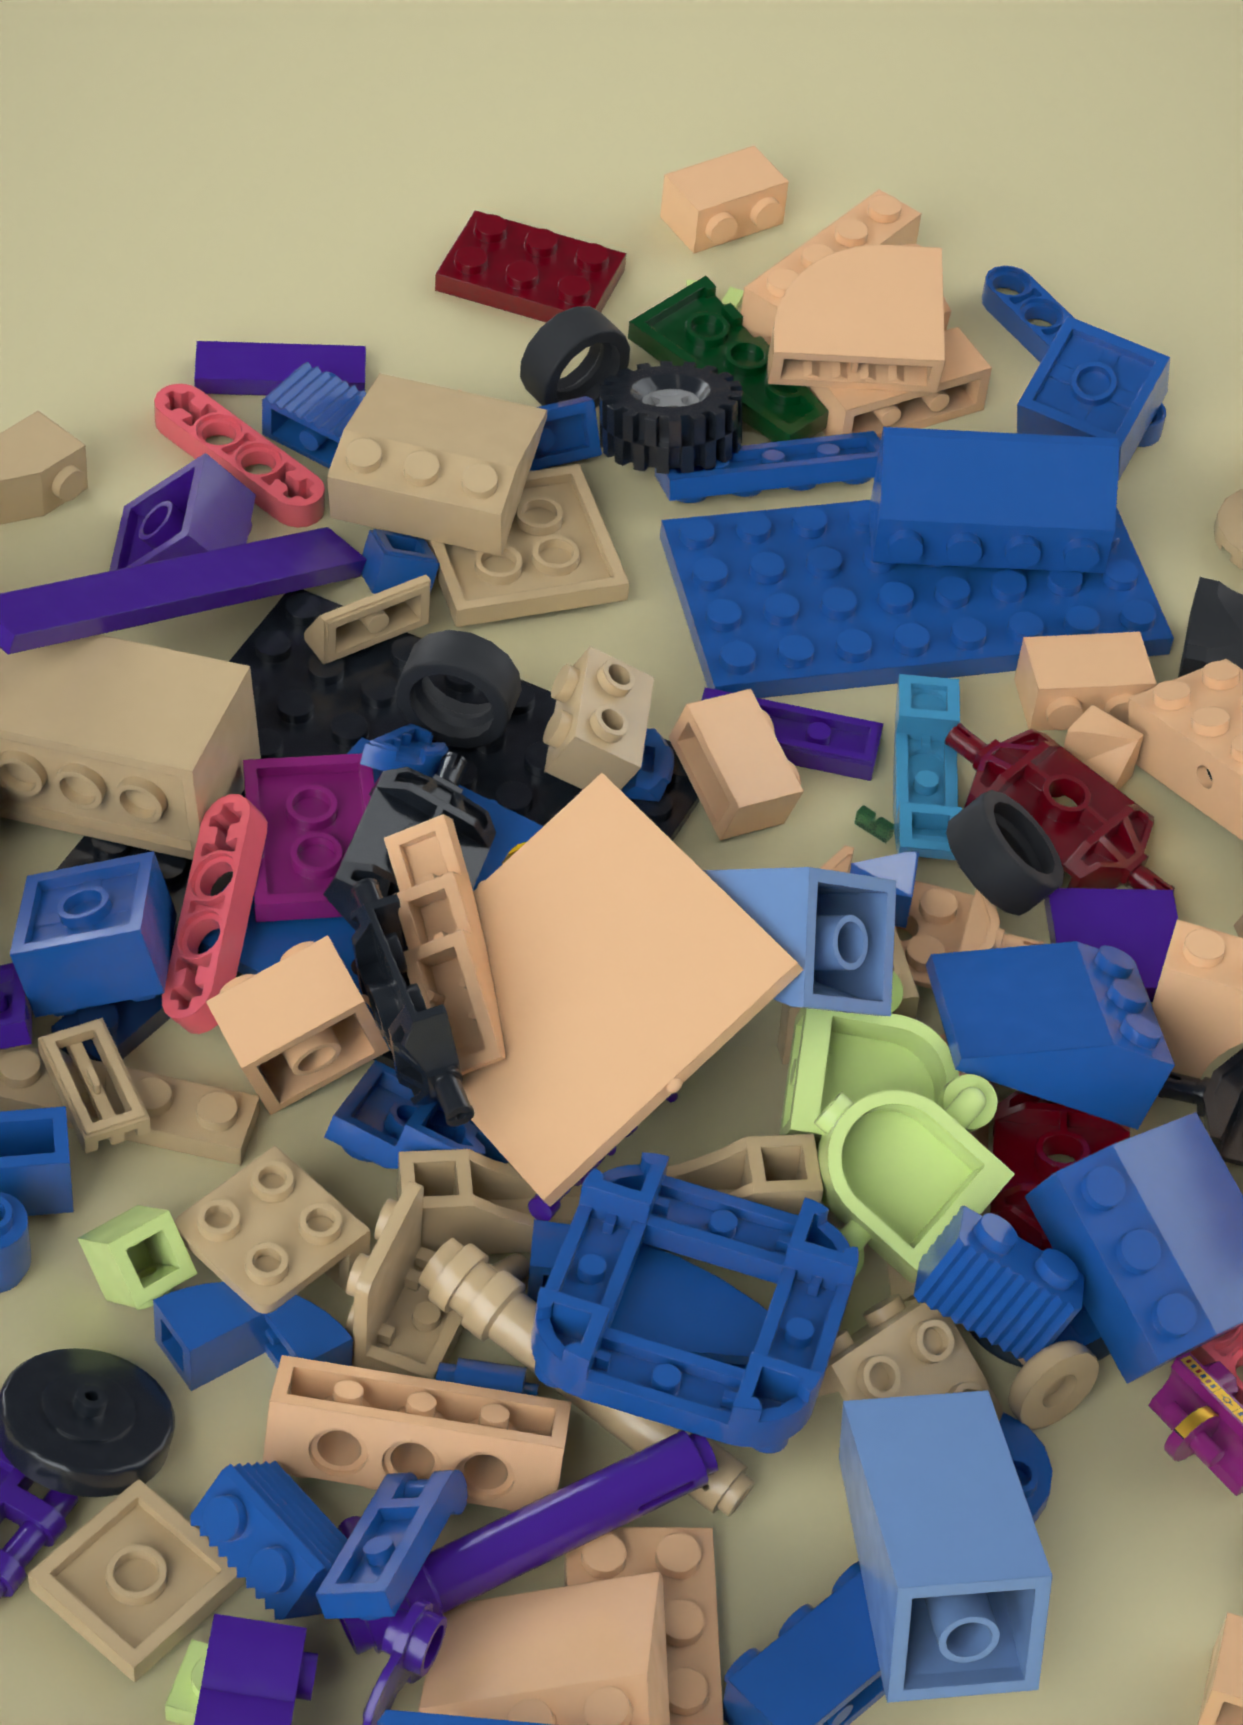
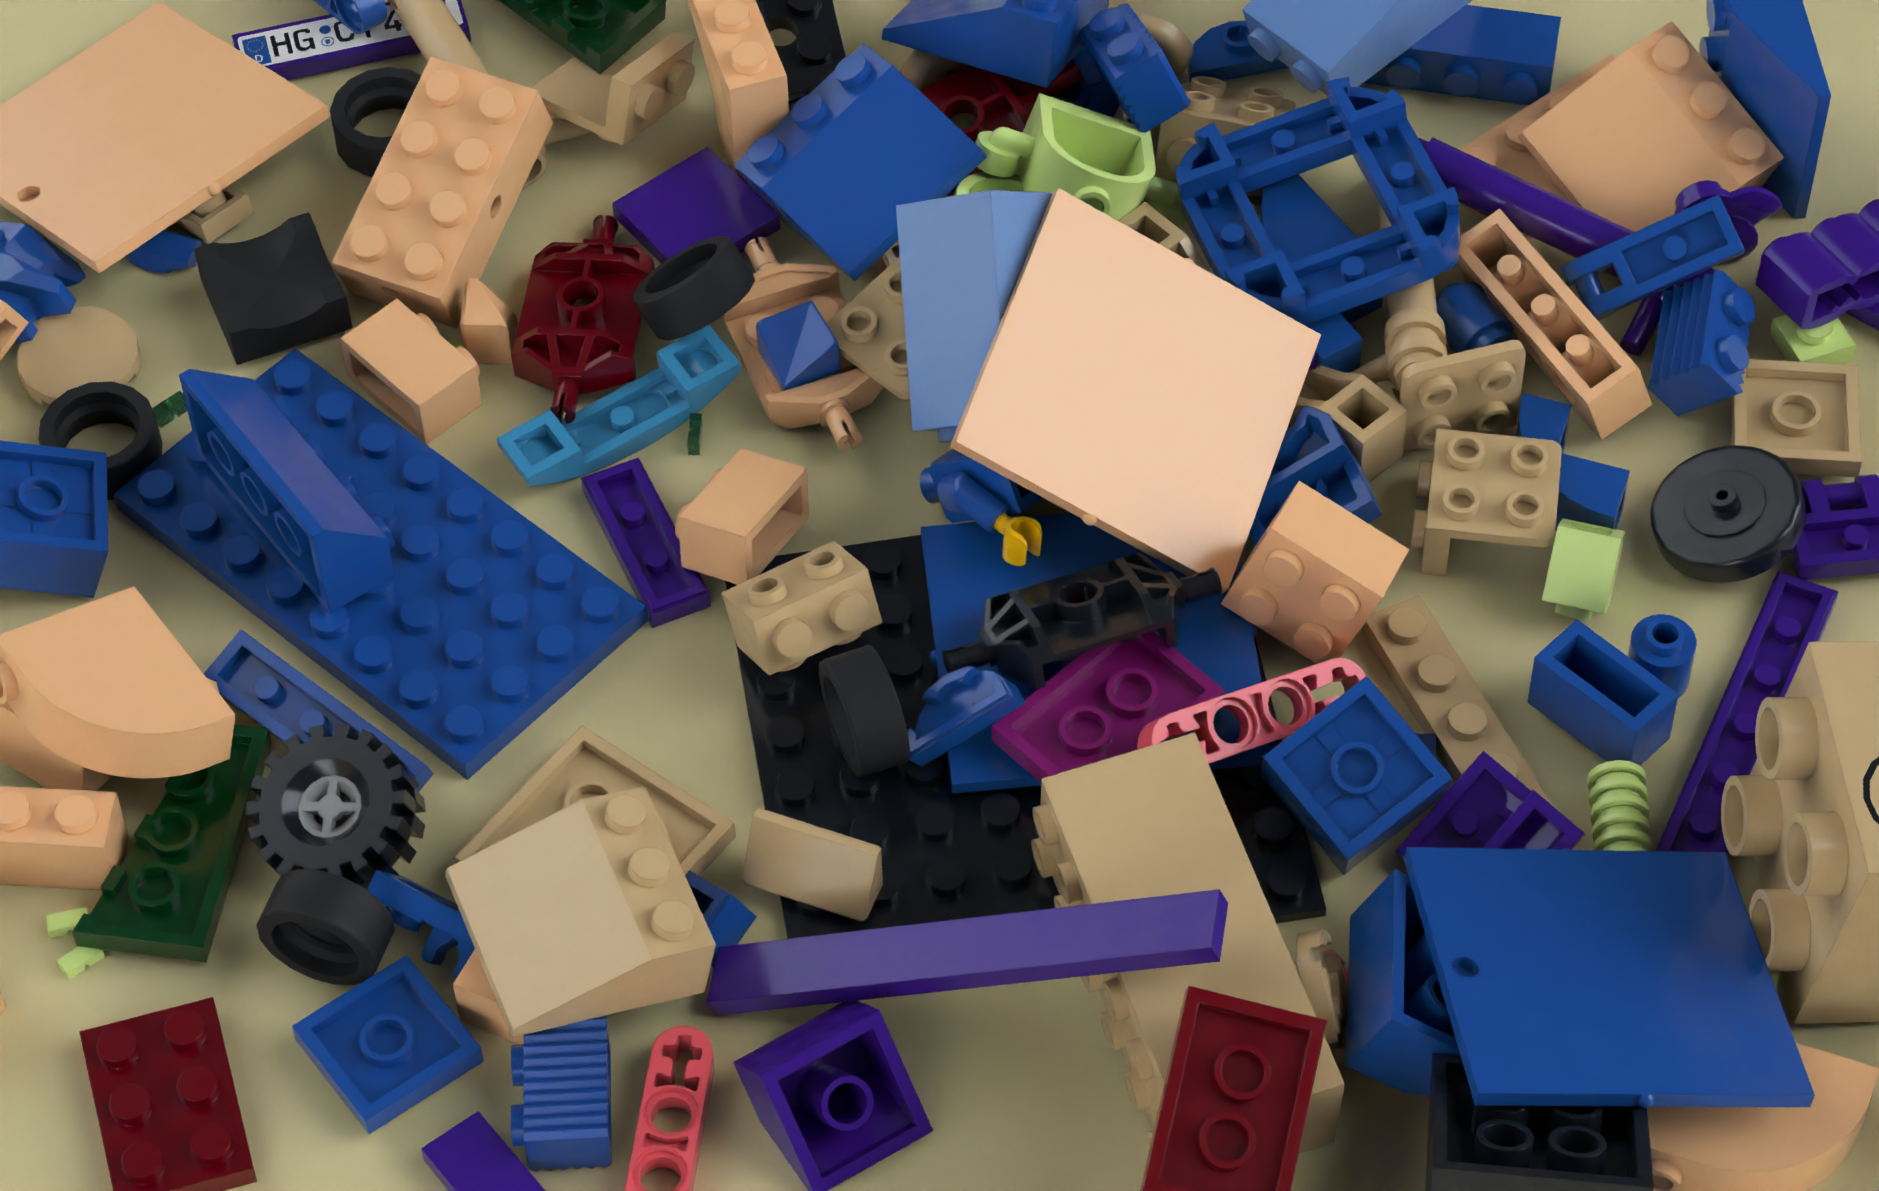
camera: 120 degrees left, 5 degrees up
(110, 1124) = (1454, 734): tan tile -> none
(416, 1036) = (1237, 507): black plate -> none
(446, 938) = (1173, 501): light nougat slope -> none
(467, 359) = (387, 1044): none -> blue plate
(1174, 468) = (99, 404): none -> black tyre
(1177, 560) = (169, 407): none -> clear green piece

